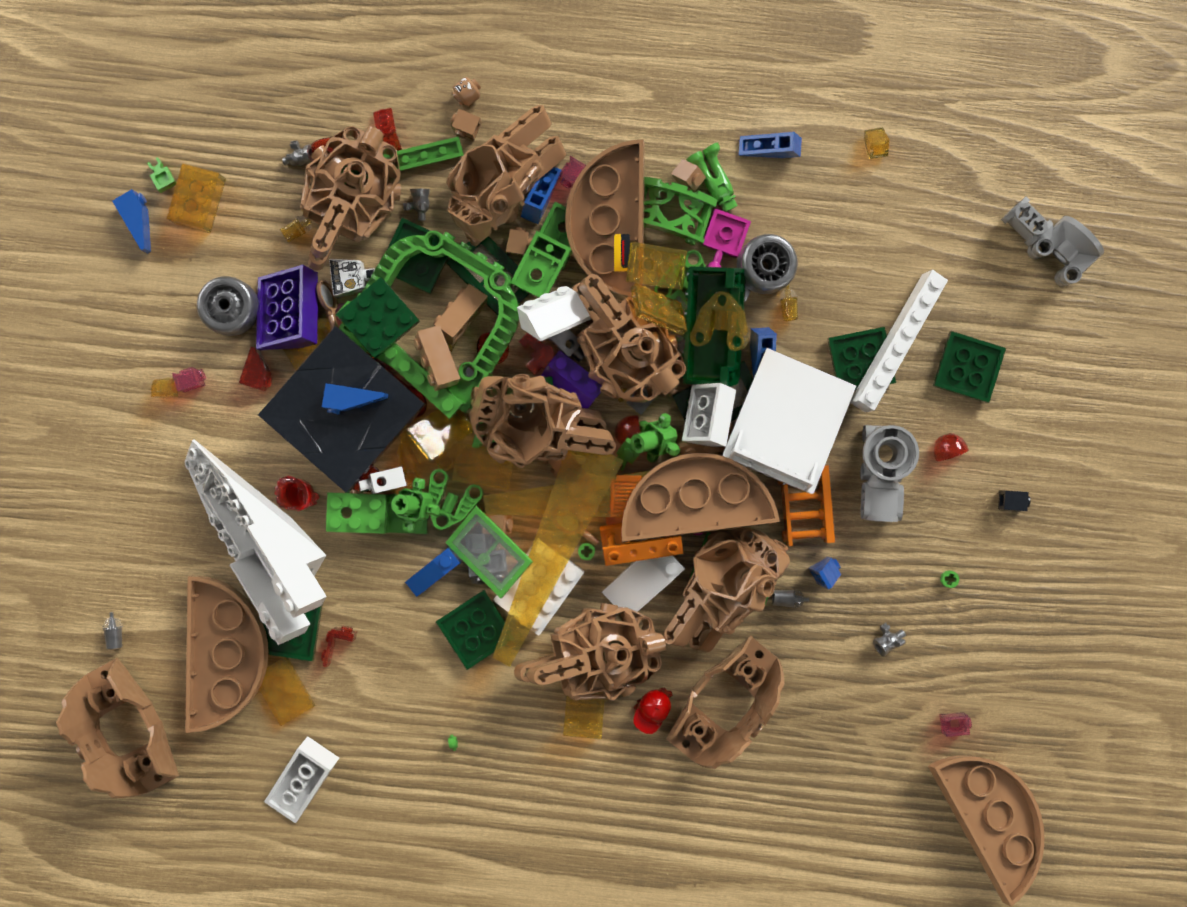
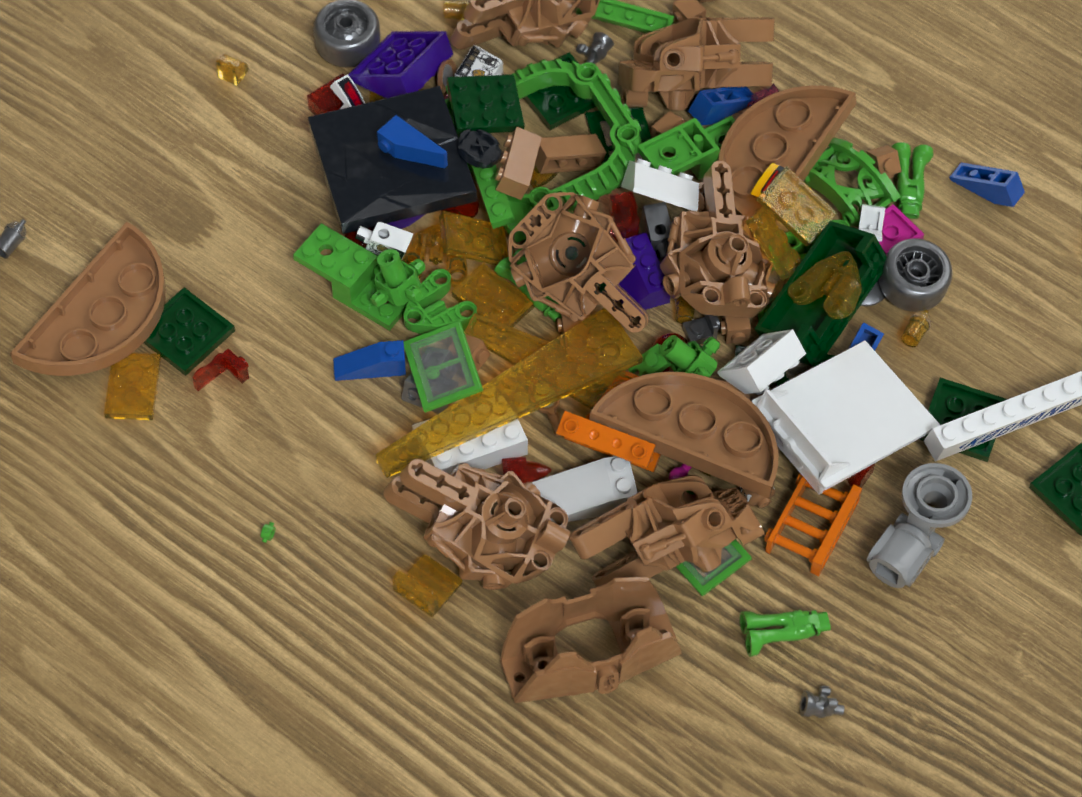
camera: 35 degrees right, 30 degrees down
(189, 379) = (261, 73): clear pink window -> none
(270, 550) = (224, 232): white piece -> none
(272, 364) = (347, 92): none -> slope
(295, 494) = (286, 215): clear red hair -> none
(301, 779) = (84, 473): white slope -> none
(400, 363) = (479, 148): none -> black tile
(473, 629) = (365, 432): dark green plate -> none
(590, 586) = (525, 470): none -> clear red plate
(591, 555) = (540, 429): bright green bush -> none
(652, 710) = (496, 619): red hair -> none
(714, 245) = (872, 220): none -> white bracket
(788, 598) = (732, 598): flat silver piece -> none
(826, 572) = (791, 586): blue slope -> none
(841, 593) = (796, 624): none -> bright green piece
(949, 446) = (1013, 546): clear red helmet -> none
(952, 584) = (931, 693): bright green bush -> none
(1014, 500) = (1054, 644): black brick -> none

